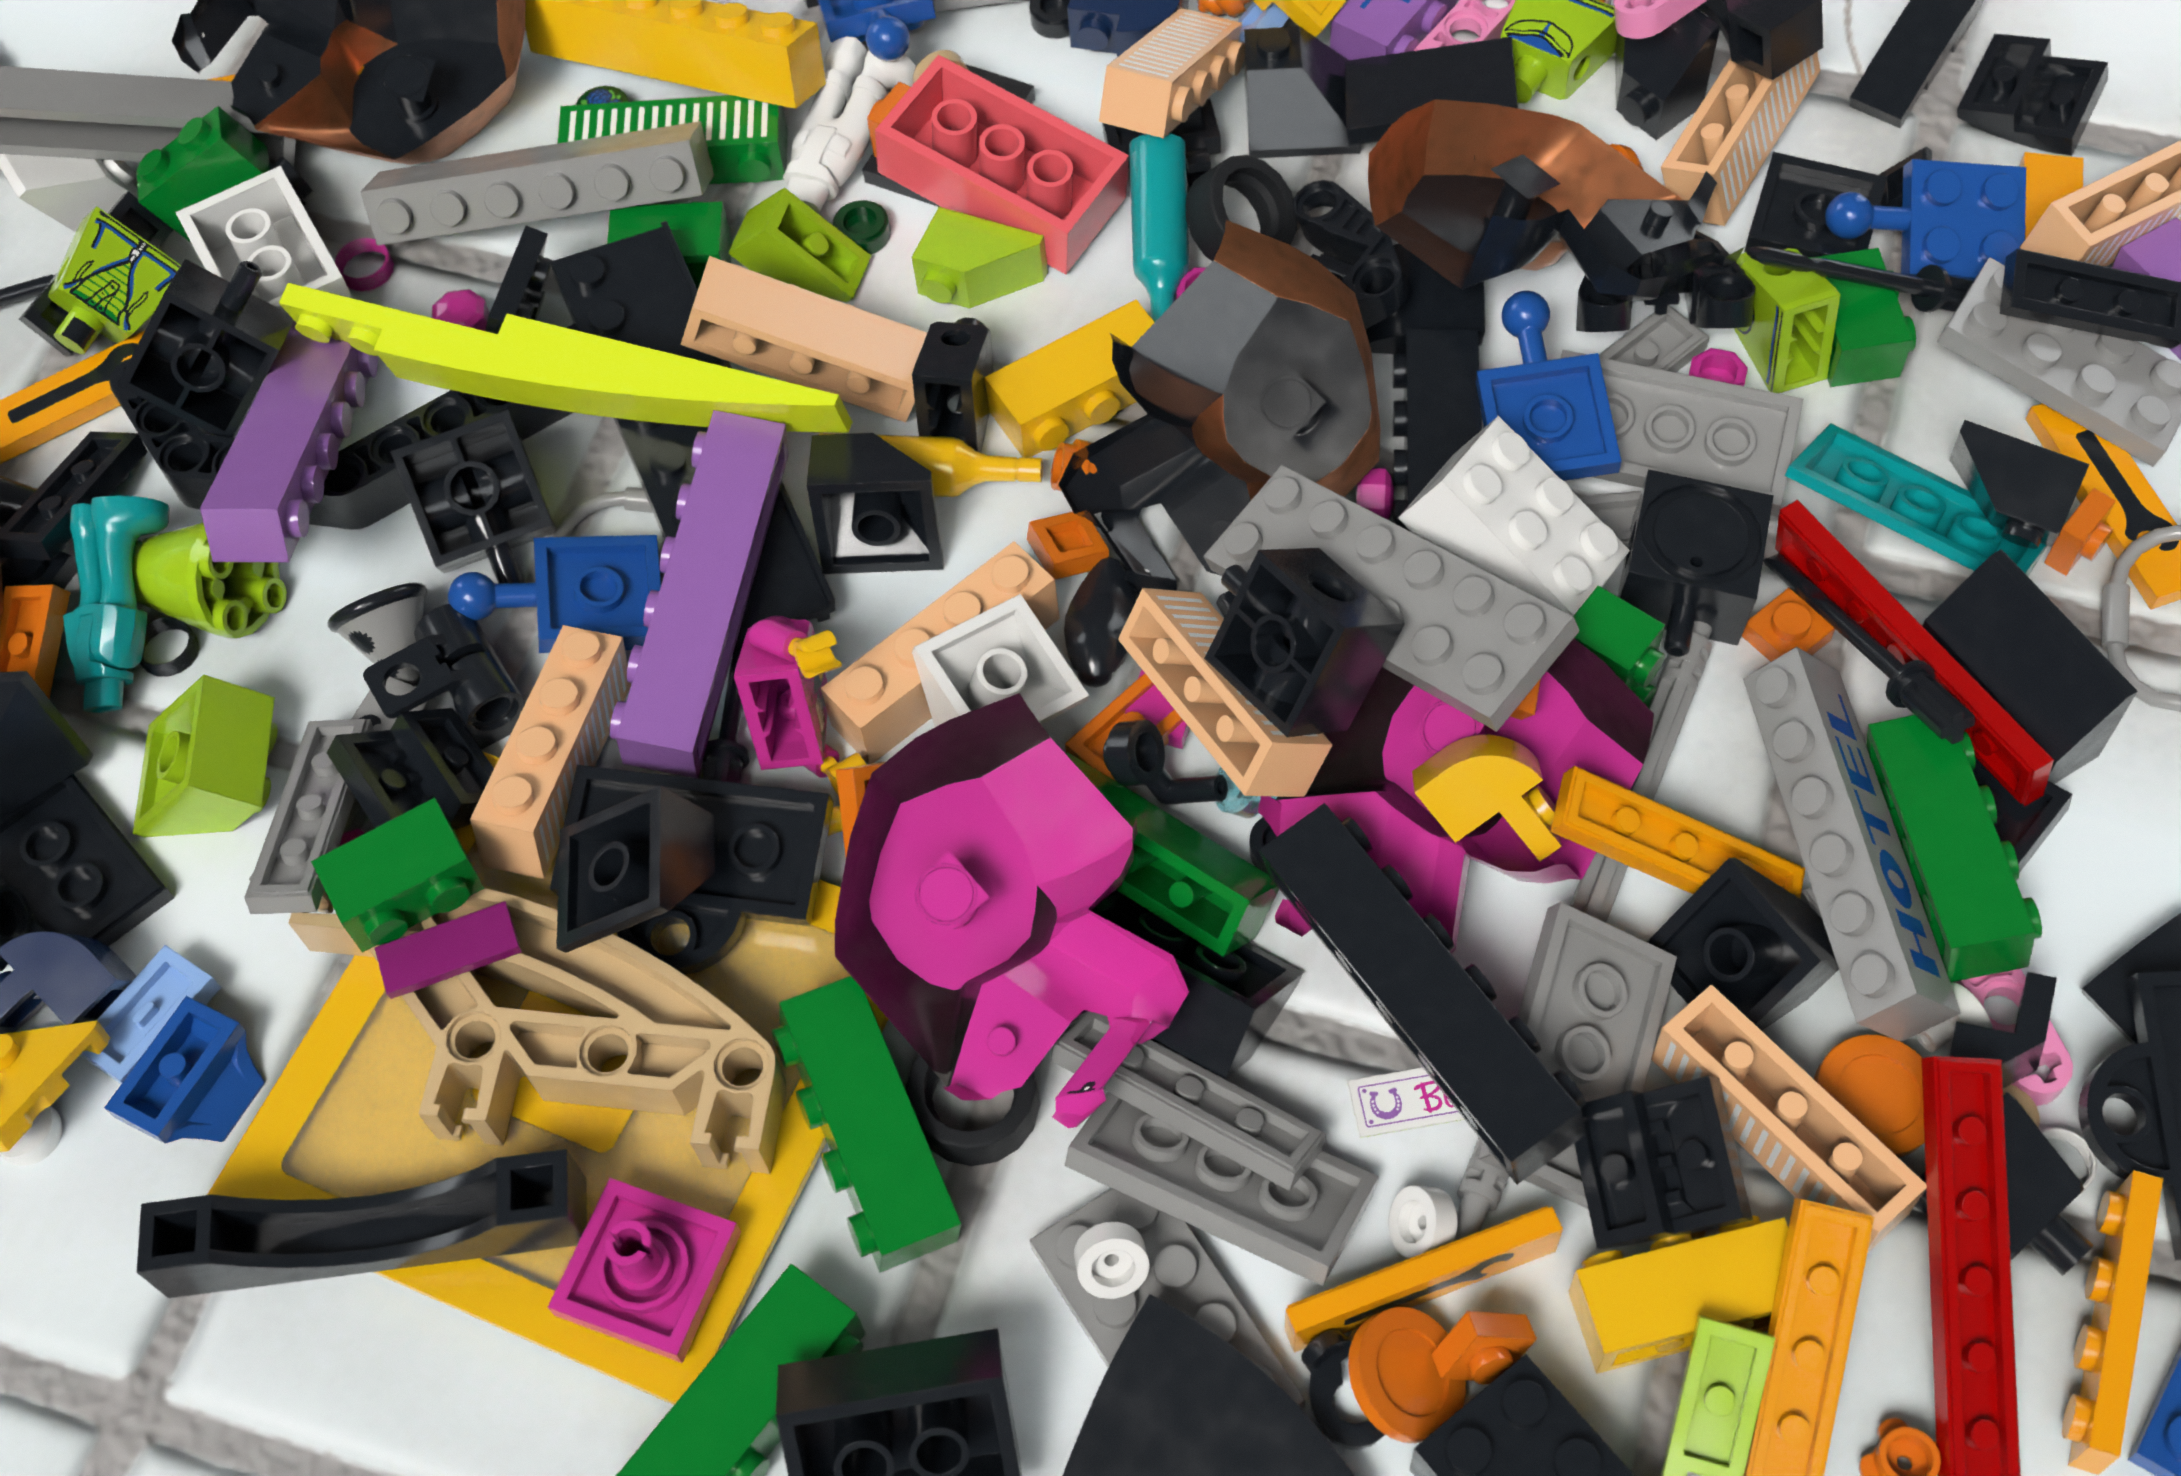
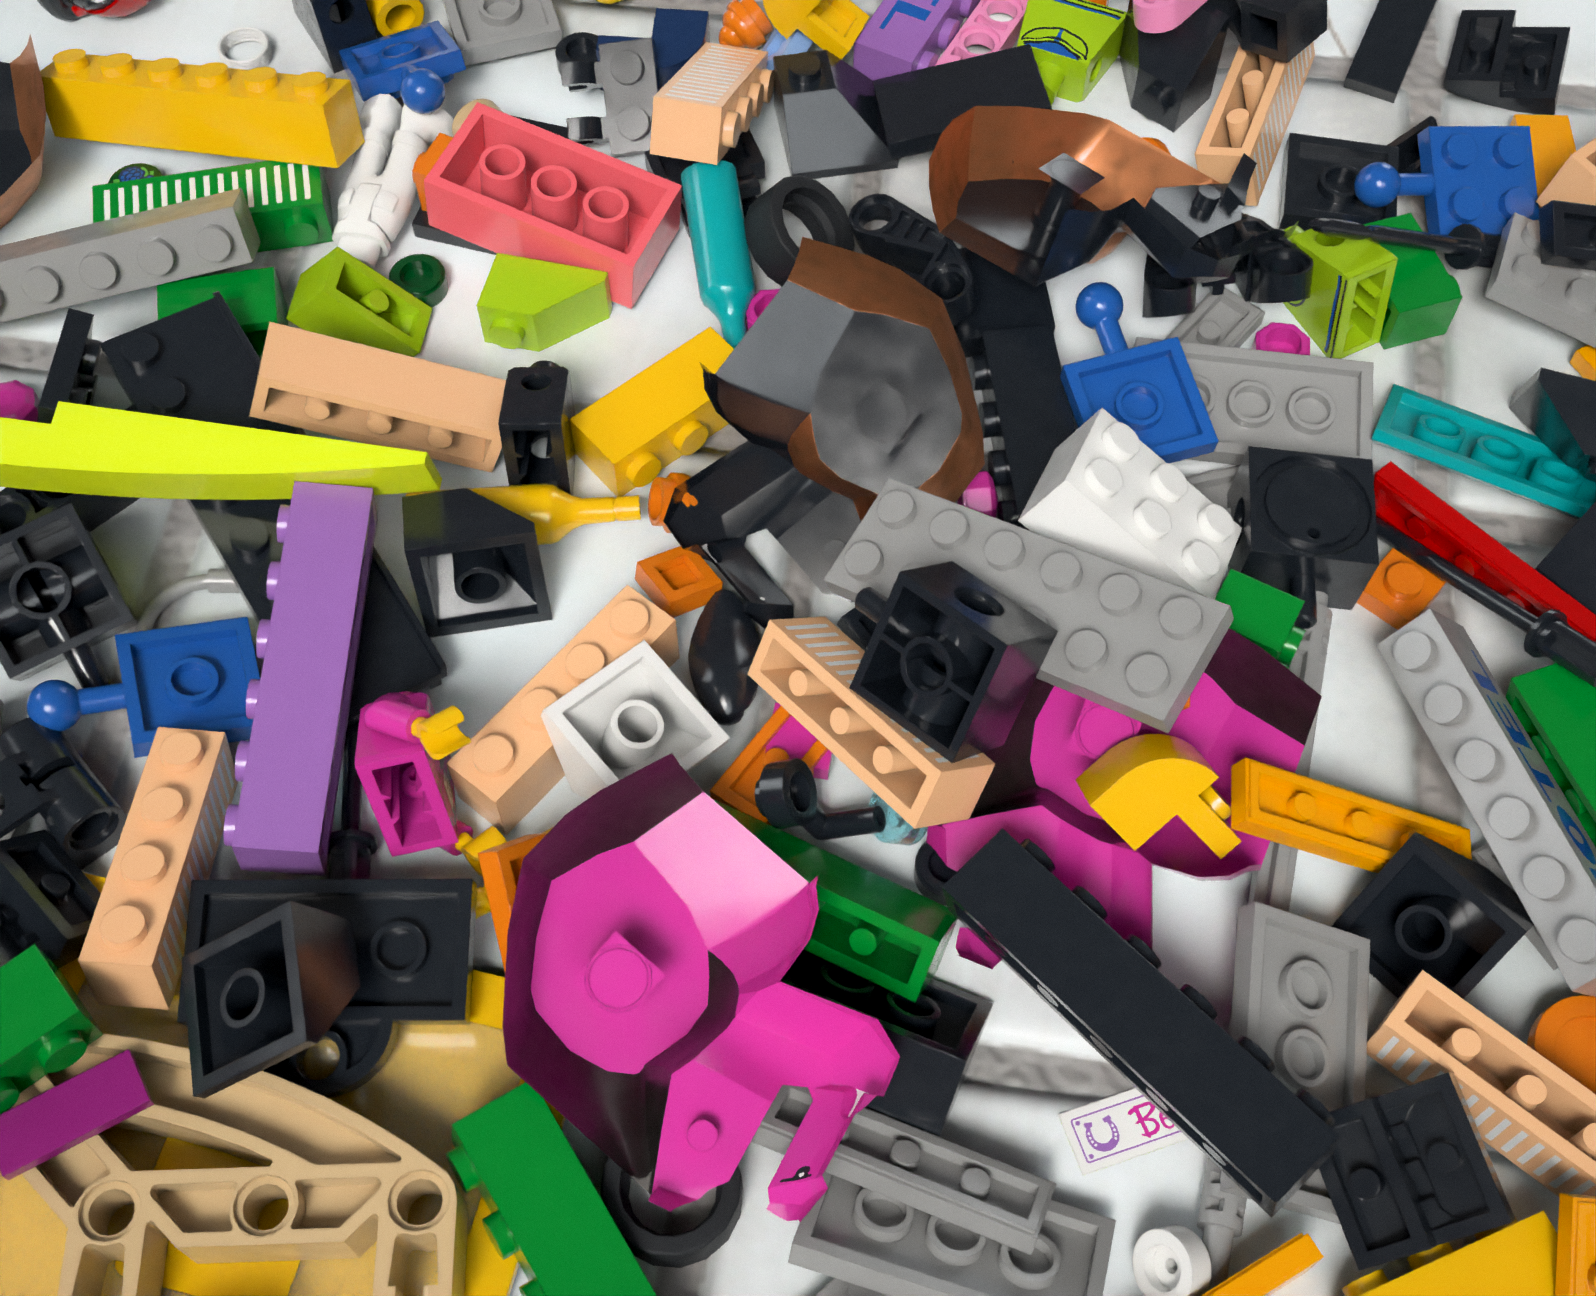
camera: 15 degrees left, 0 degrees up
(1095, 38) = (629, 83): none -> plate

